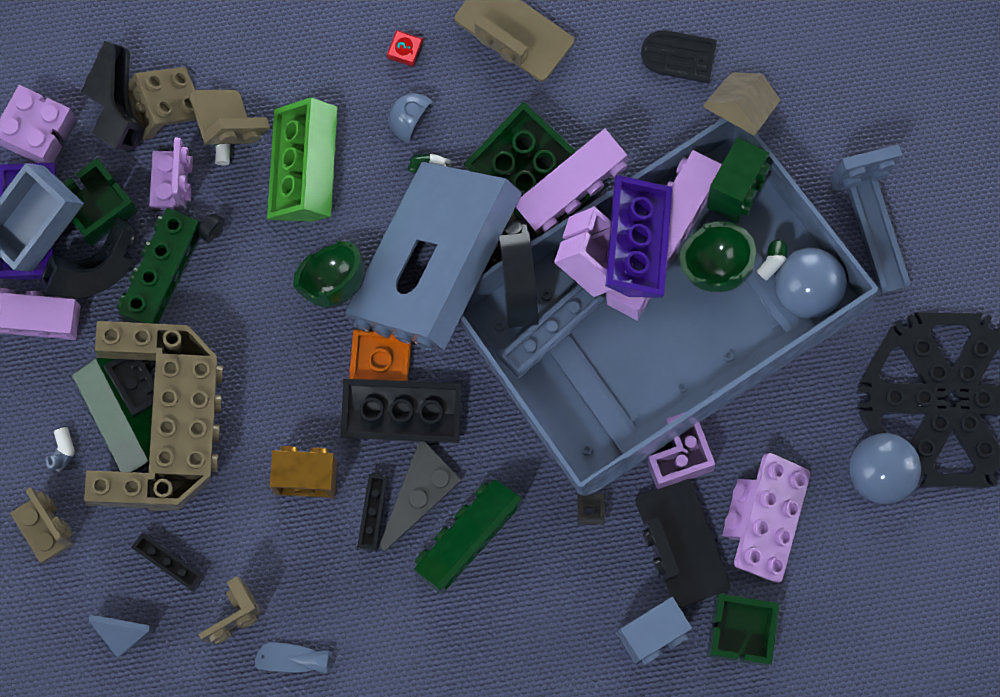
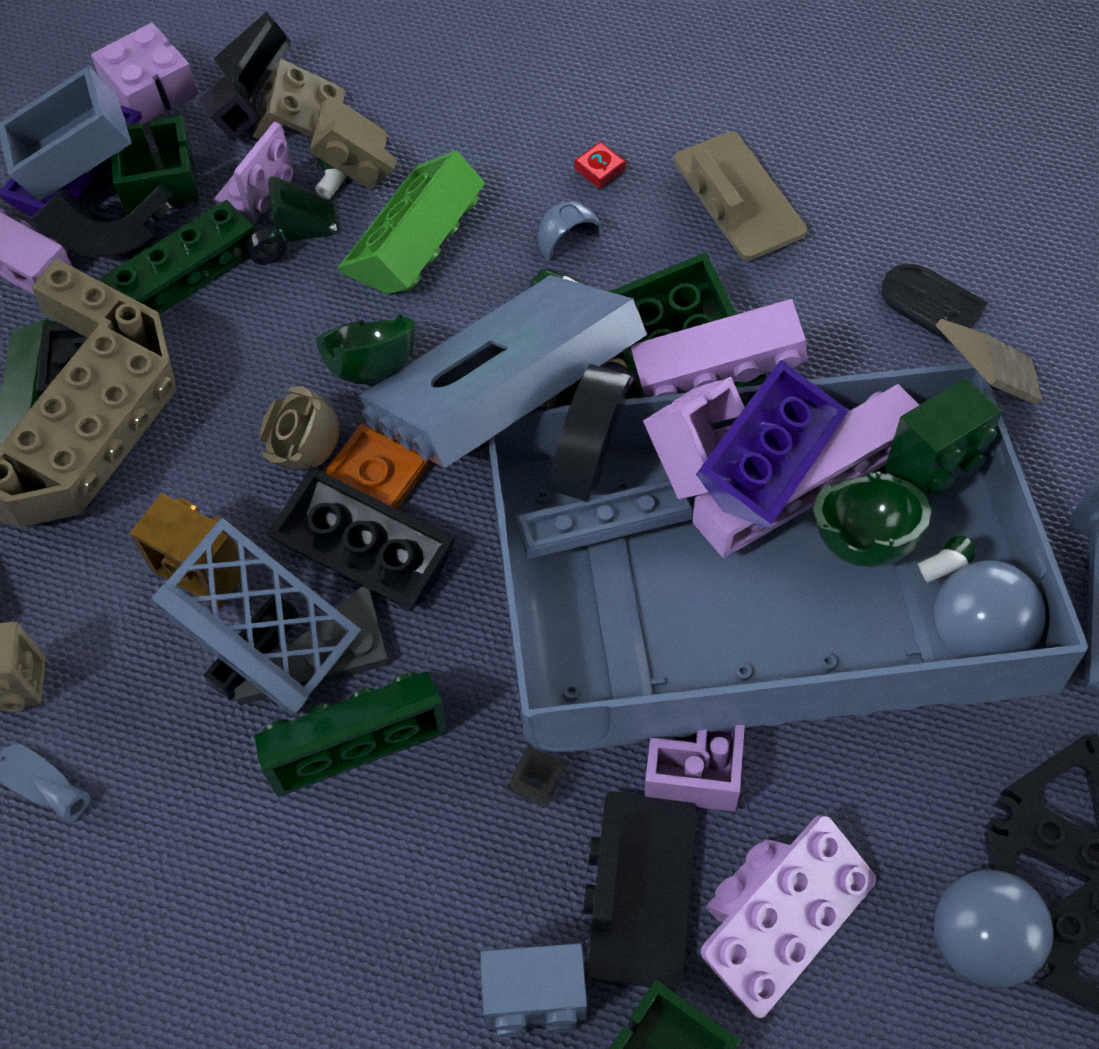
camera: 30 degrees right, 15 degrees down
(220, 189) = (300, 213): none -> clear green slope
(321, 358) = (300, 430): none -> dark tan cylinder
(378, 524) = (231, 647): none -> sand blue fence

